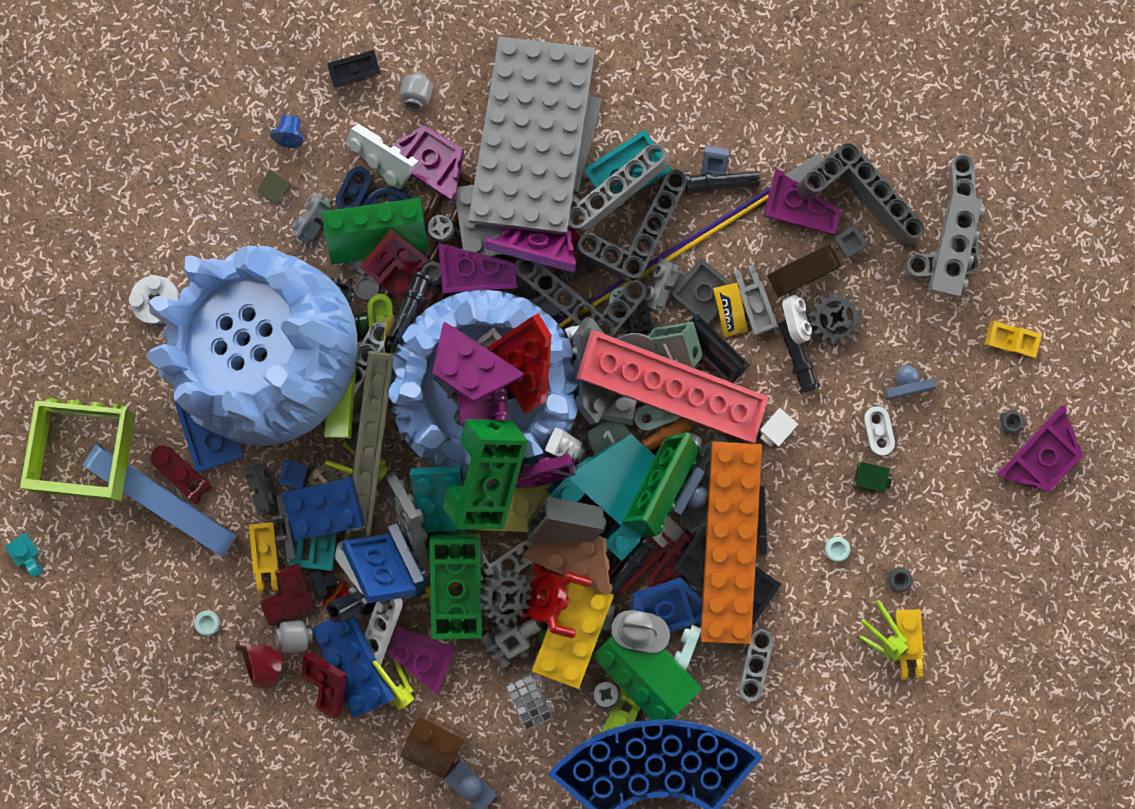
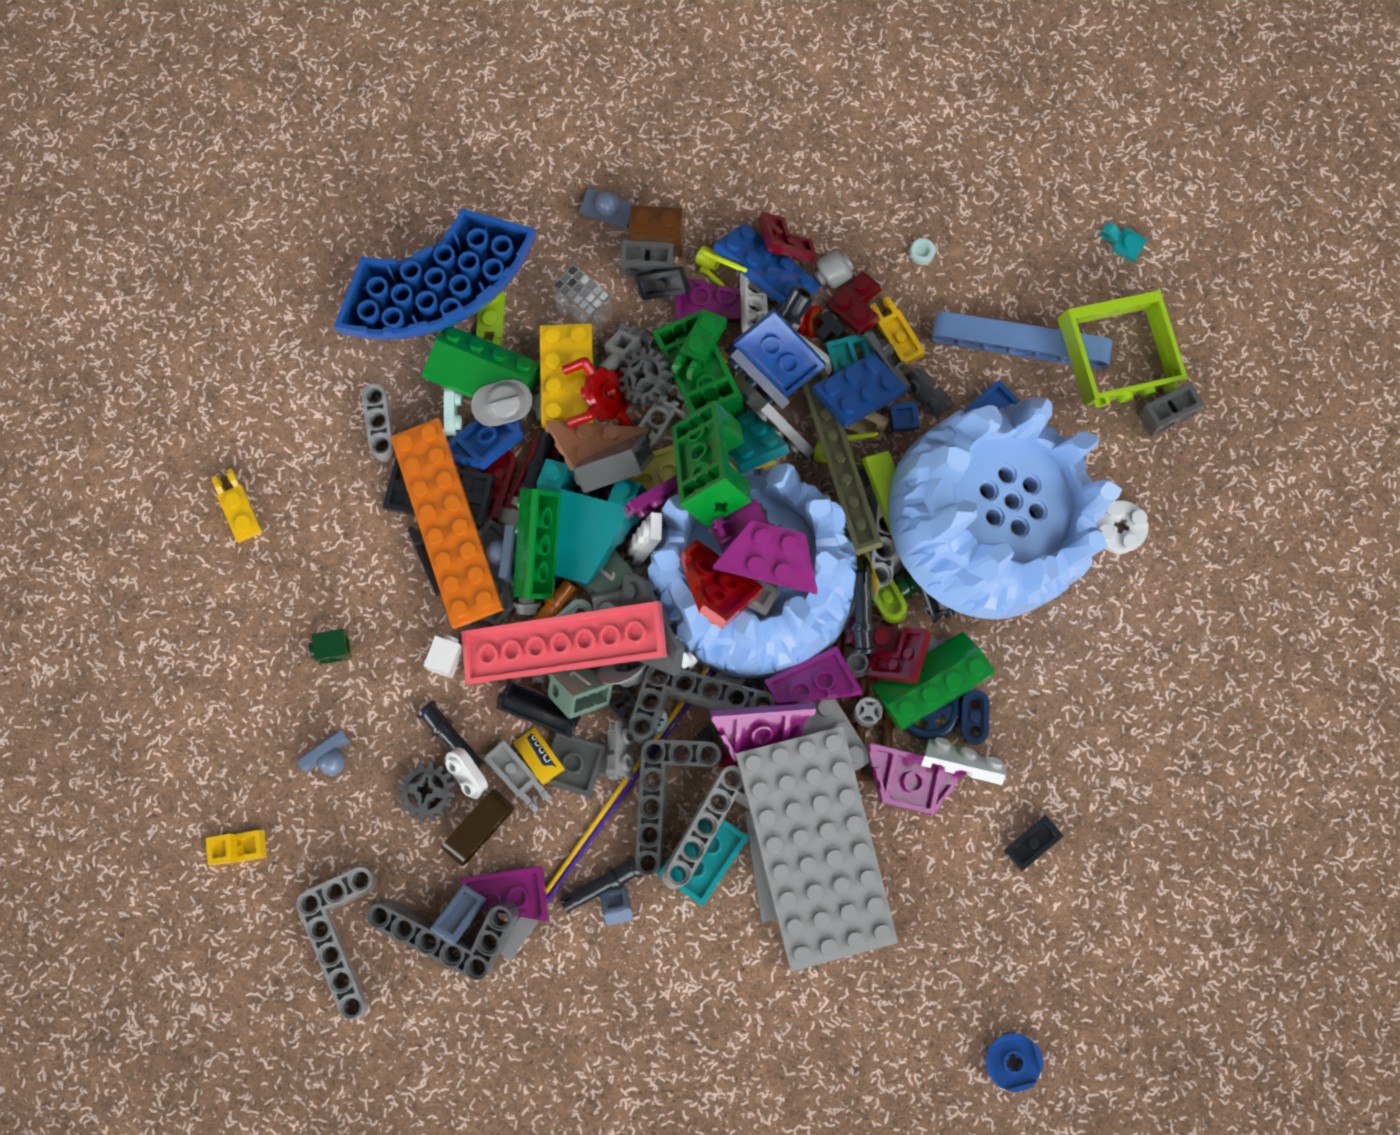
camera: 155 degrees right, 10 degrees down
(62, 380) = (1171, 409): none -> dark grey brick
(179, 472) = (1015, 374): dark red plate -> none
(261, 663) = (851, 233): dark red helmet -> none
(274, 187) = (1056, 688): olive slope -> none
(288, 132) = (1069, 748): blue piece -> none
(305, 225) = (1005, 682): light grey hinge -> none
(366, 288) = (916, 621): light grey piece -> none
(415, 91) = (958, 845): light grey head -> none
(444, 605) = (699, 343): none -> green hinge
(452, 686) = (662, 283): none -> black plate
(456, 716) = (645, 256): none -> dark grey brick
(607, 690) = (514, 344): light grey wheel -> none
(837, 549) = (340, 565): light aqua tile -> none
(847, 201) = (458, 915): none -> sand blue tile
(850, 241) = (441, 878): dark grey plate -> none
(882, 430) = (341, 697): white plate -> none
(893, 647) = (249, 490): lime plant -> none
(907, 579) = (262, 555): dark grey plate -> none
(940, 281) = (340, 953): light grey brick -> none
(1005, 421) = (203, 757): dark grey plate -> none
(1045, 455) = (161, 742): magenta wing -> none

